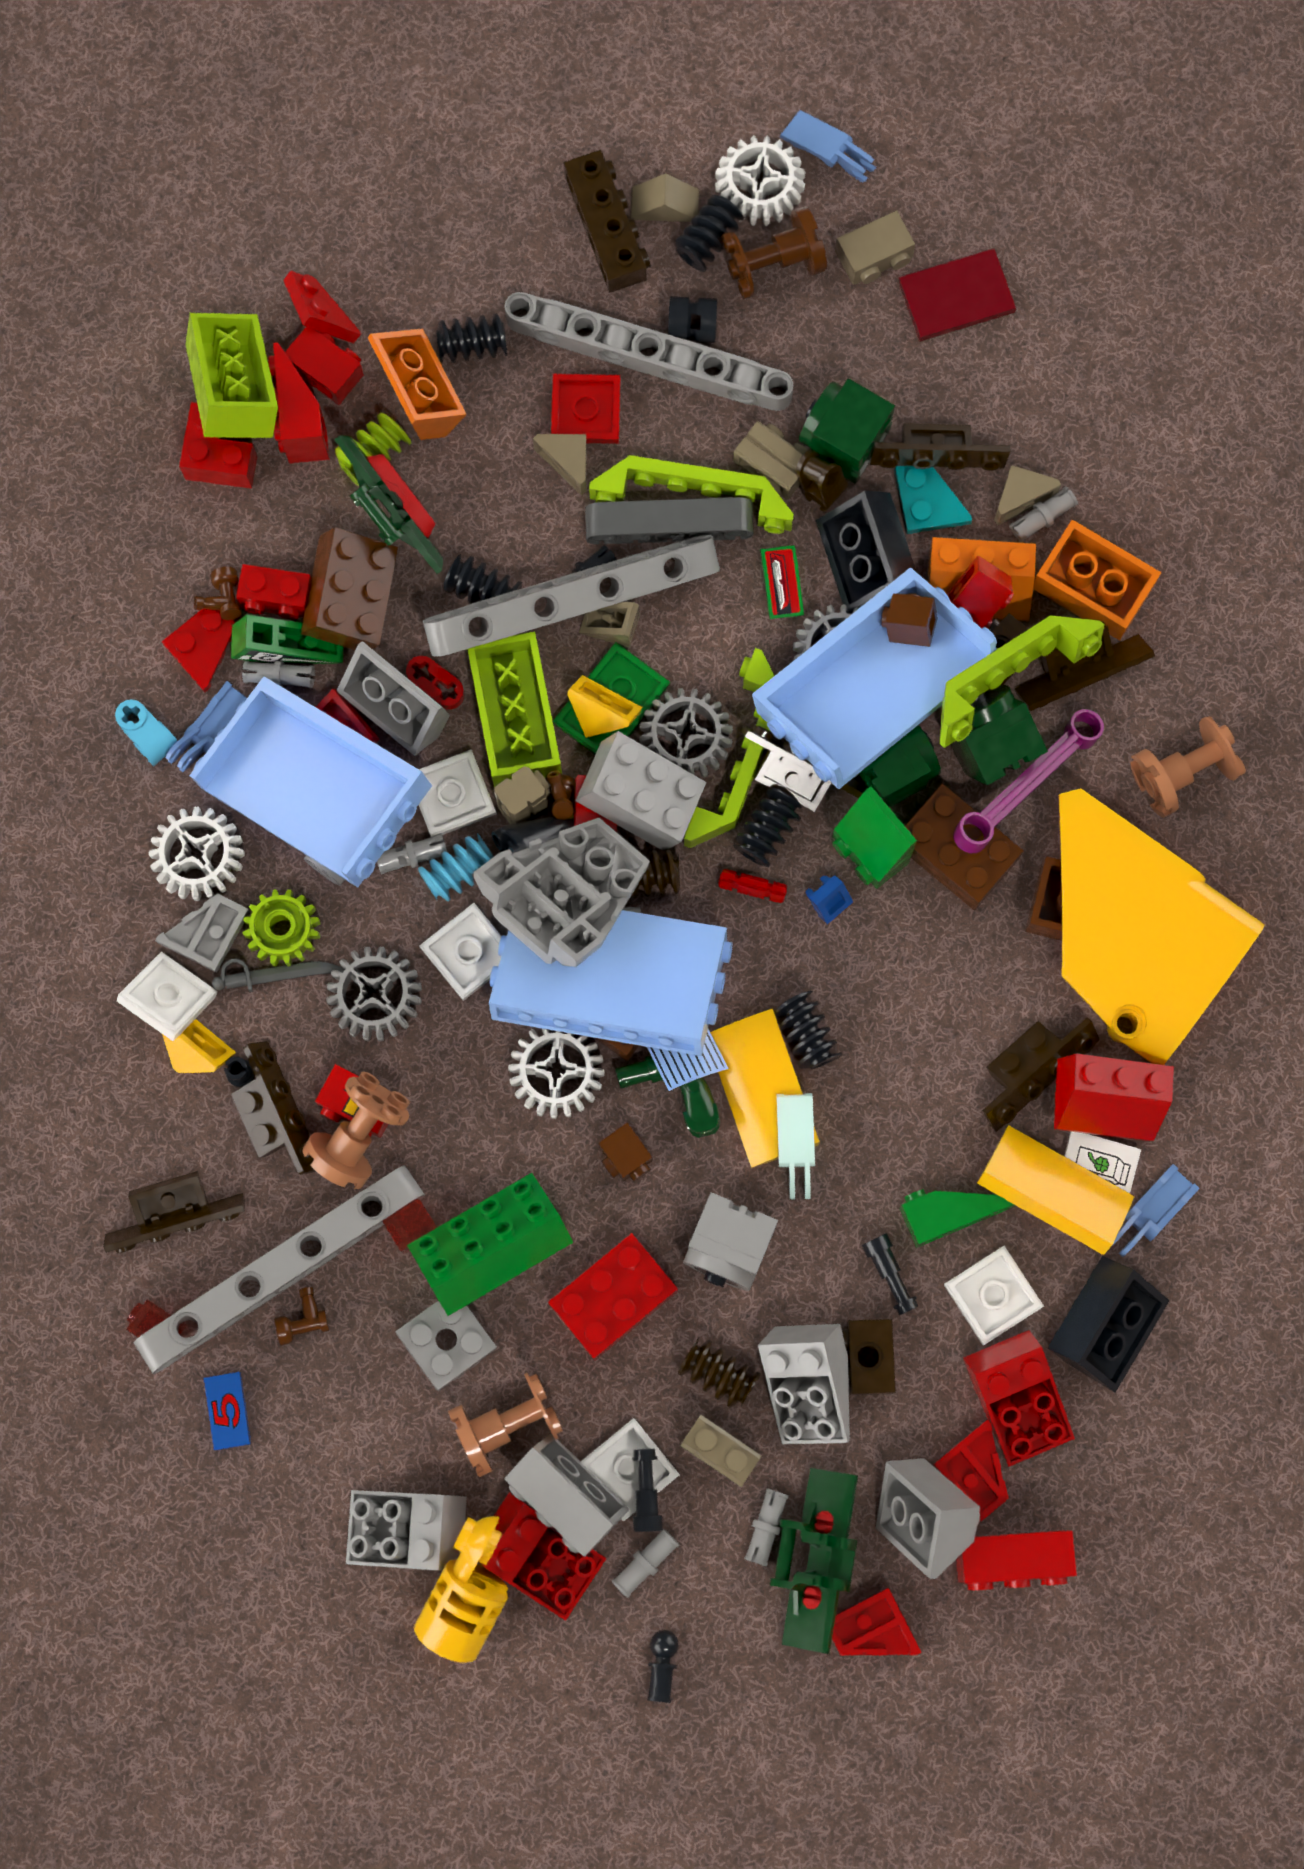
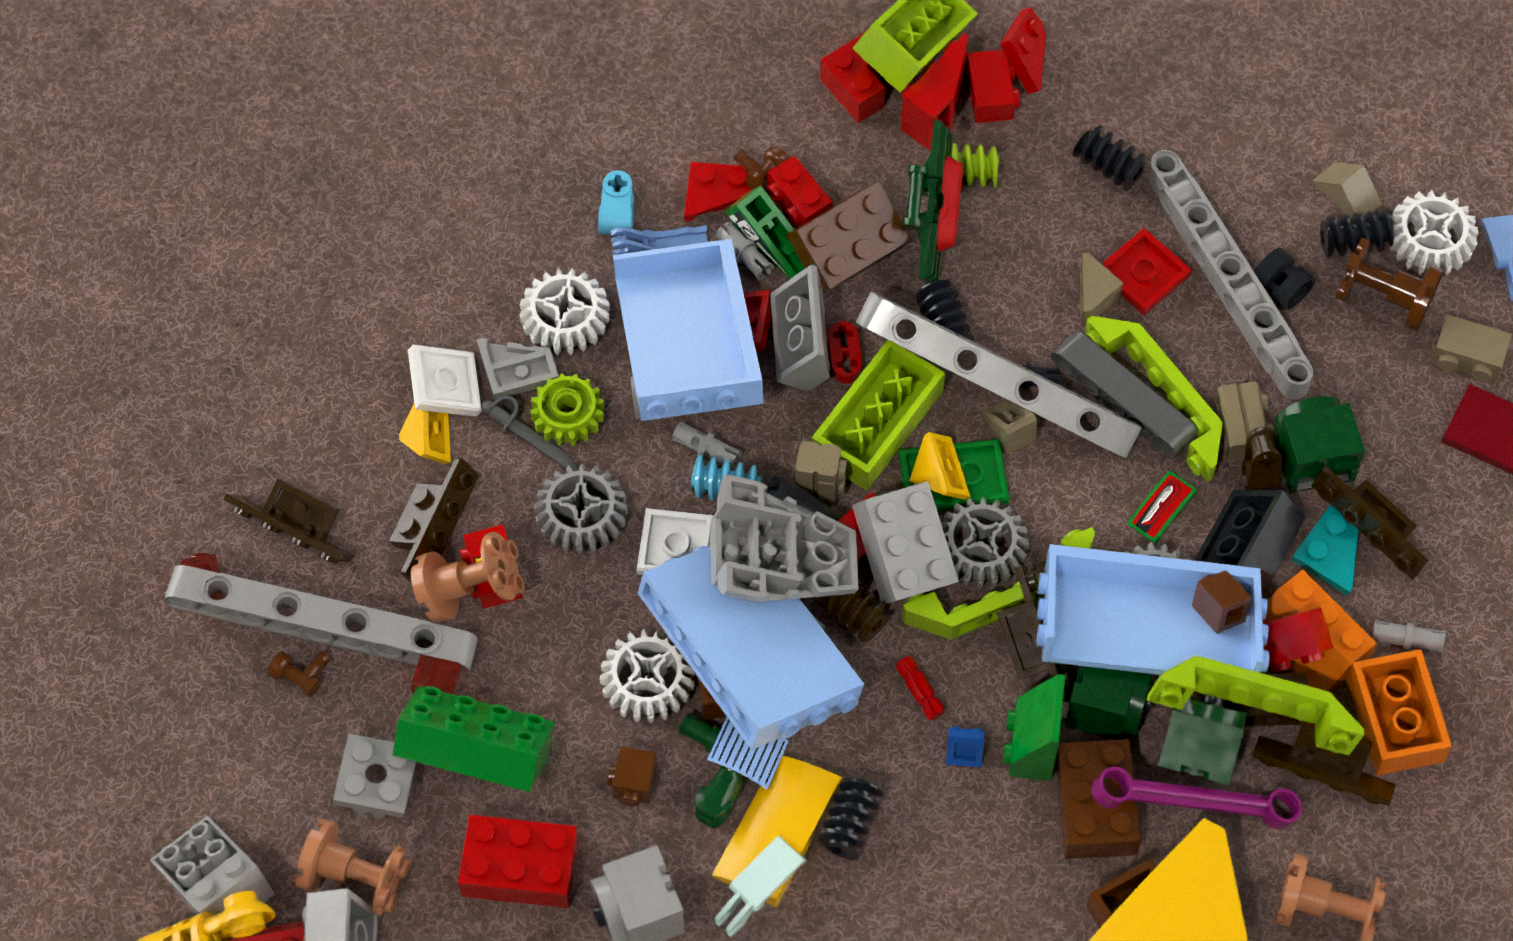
camera: 45 degrees right, 15 degrees down
(227, 1411) = (186, 682): blue tile -> none
(244, 1077) = (435, 470): black pin -> none
(419, 381) = (1039, 147): orange slope -> none
(456, 795) = (775, 433): white tile -> none
(563, 792) = (849, 495): reddish brown piece -> none
(605, 220) = (1289, 165): dark brown brick -> none
(767, 826) = (973, 656): black piece -> none
(1023, 491) = (1406, 604): dark tan slope -> none

